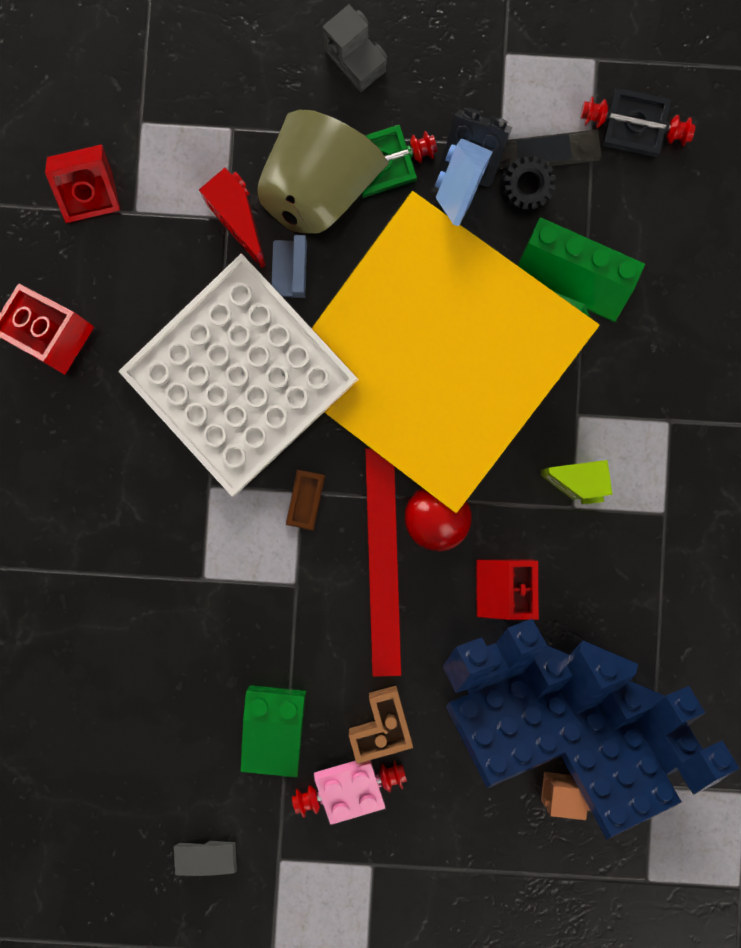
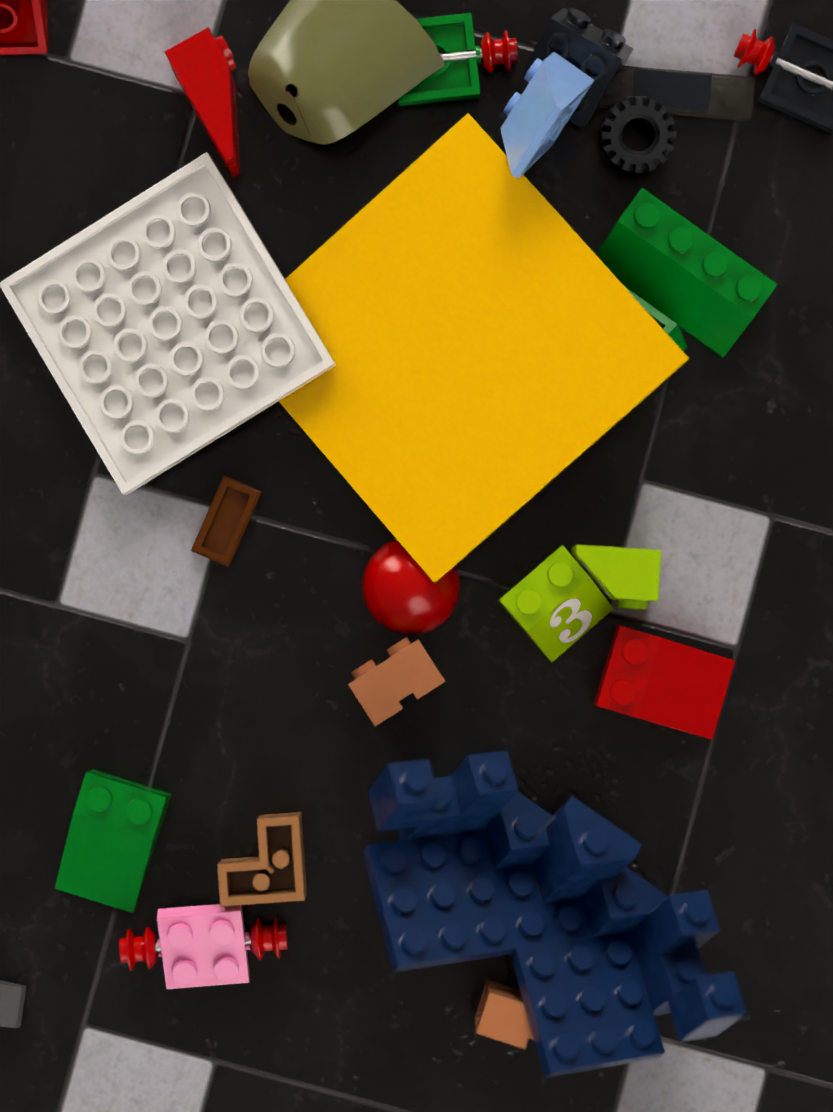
camera: 15 degrees right, 0 degrees up
(290, 267) = (273, 184): sand blue panel -> none
(383, 565) = (317, 637): red tile -> none
(445, 579) = (384, 685): none -> nougat brick
(507, 589) = (486, 706): red slope -> none
(538, 509) = (556, 603): none -> lime slope
(621, 547) = (664, 682): none -> red slope

